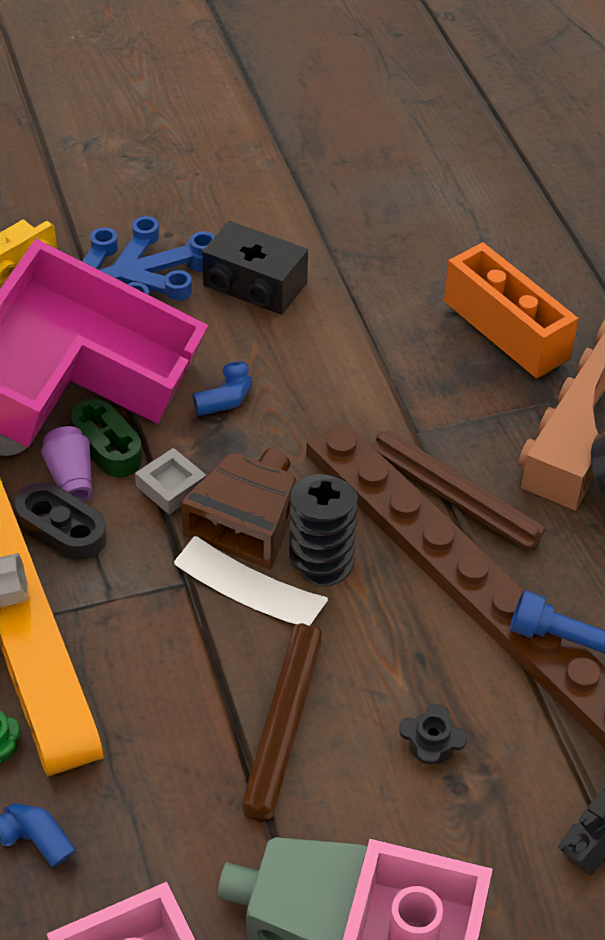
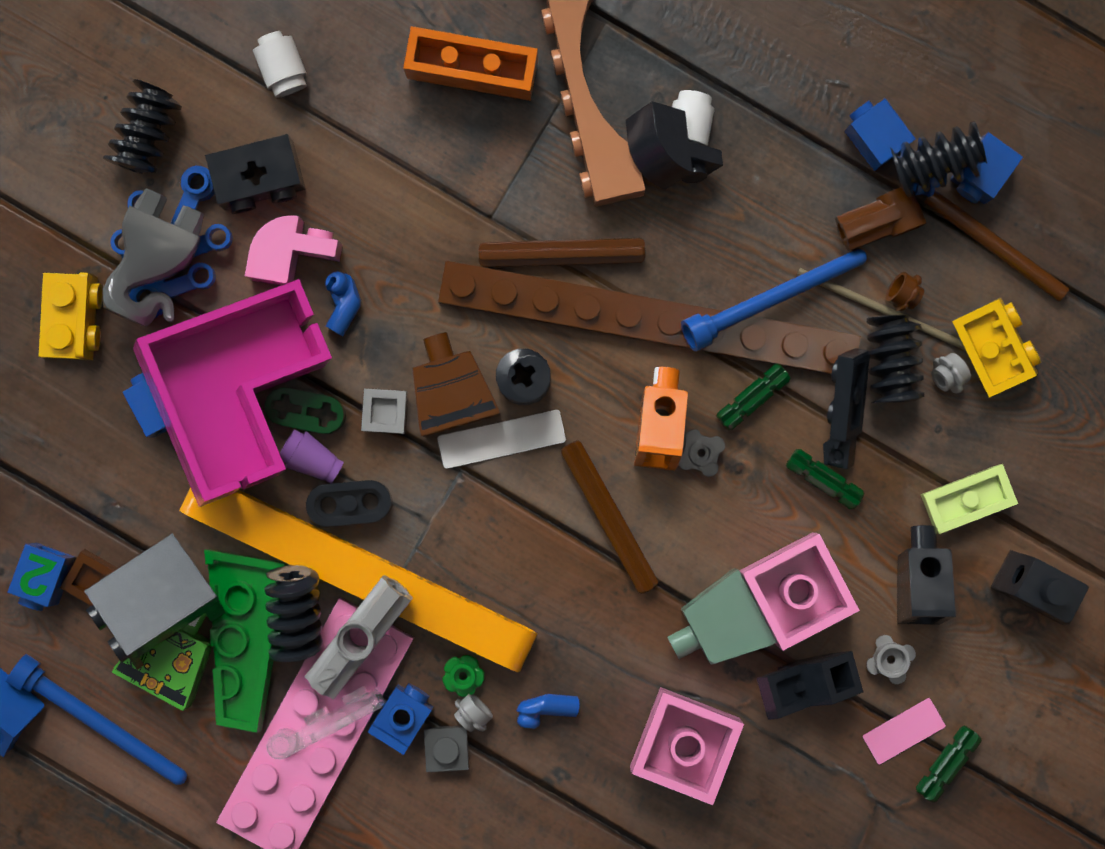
camera: 40 degrees left, 40 degrees up
(122, 240) = (151, 254): none -> dark grey hips
(200, 187) = (143, 128): none -> black piece
(231, 324) = (277, 247): none -> bright pink brick
(350, 225) = (280, 64): none -> white brick
(412, 666) = (658, 436): none -> orange torso
(535, 730) = (753, 397): none -> dark green axle
(546, 863) = (825, 479): none -> dark green axle

